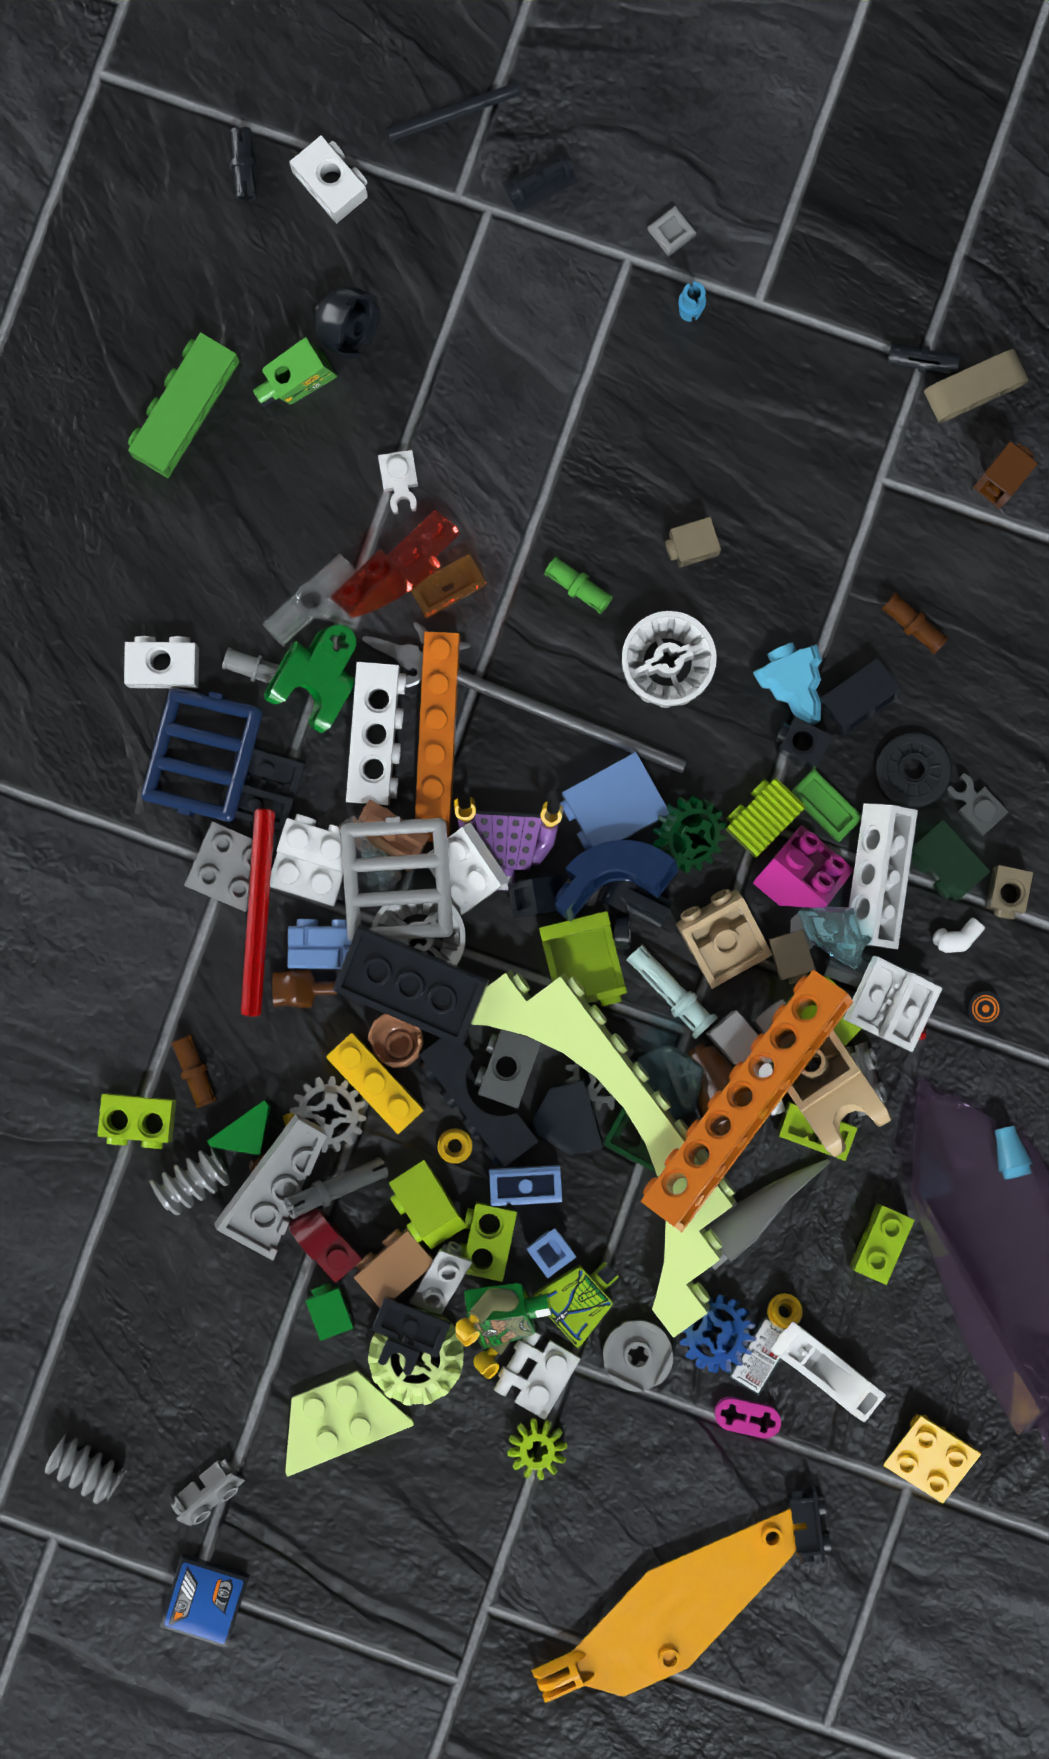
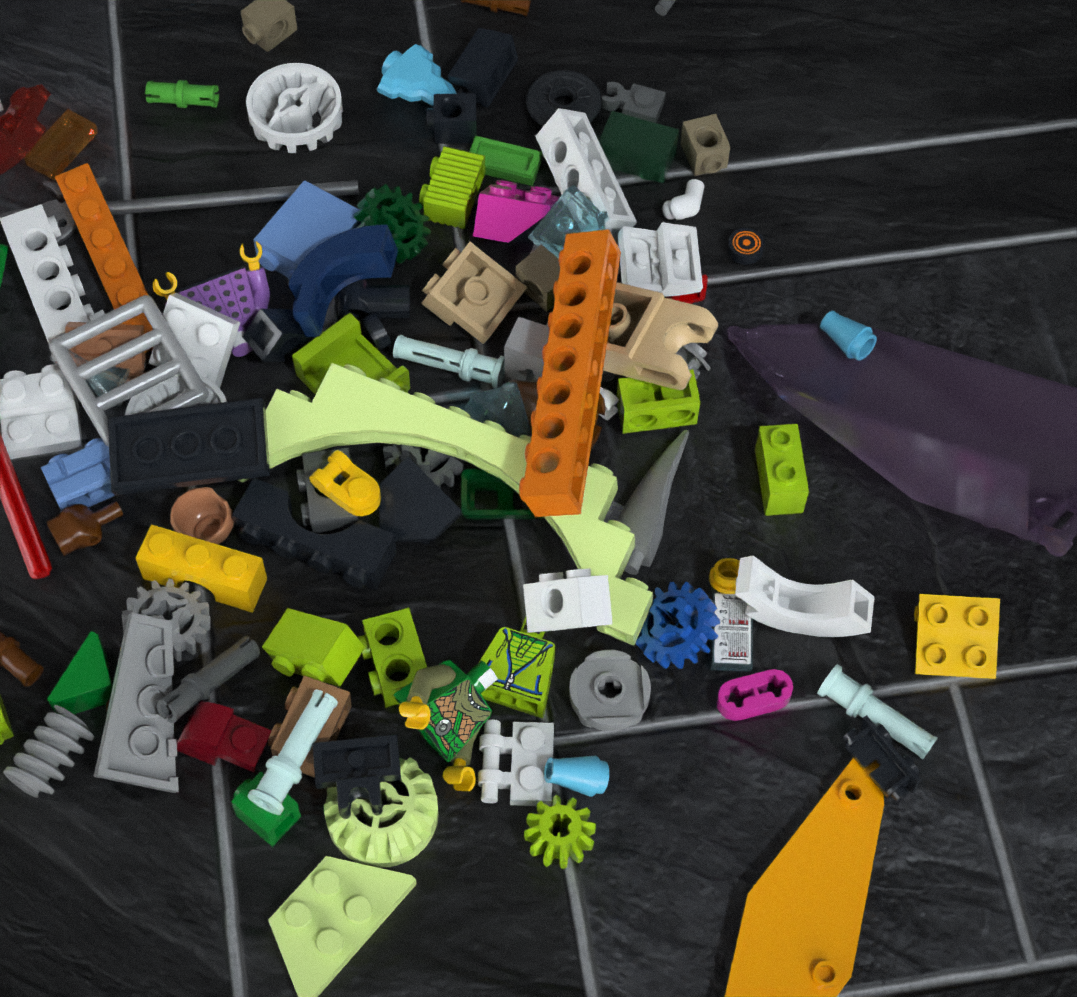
camera: 30 degrees left, 25 degrees down
(353, 1305) = (285, 768): none -> light aqua pin
(441, 1279) = (365, 703): light grey hinge -> none
(452, 1157) = (312, 582): yellow plate -> none
(525, 1094) = (357, 495): none -> yellow plate
(525, 1185) = (405, 580): medium blue brick -> none
(550, 1252) = (463, 630): medium blue brick -> none
(576, 1413) = (581, 774): none -> medium azure cone
(636, 1286) = (567, 602): none -> white brick
(824, 1470) = (861, 702): none -> light aqua pin

